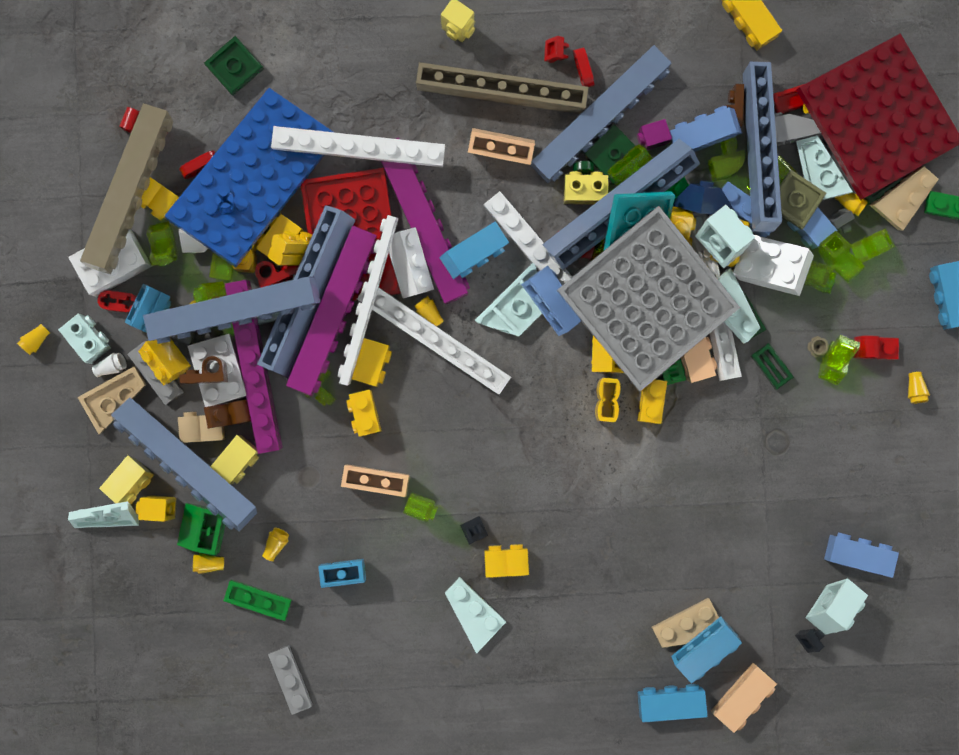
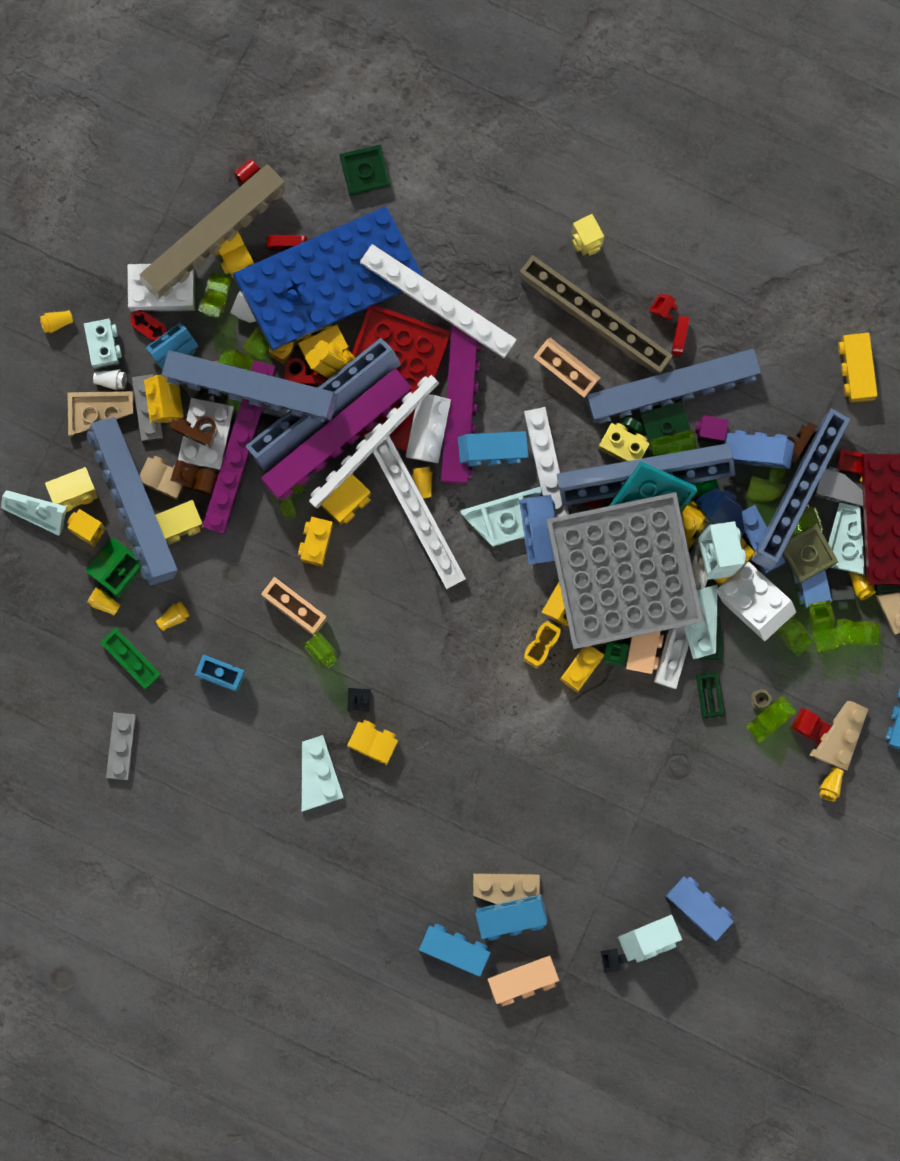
camera: 30 degrees right, 5 degrees down
(906, 345) = (840, 741): none -> tan wing

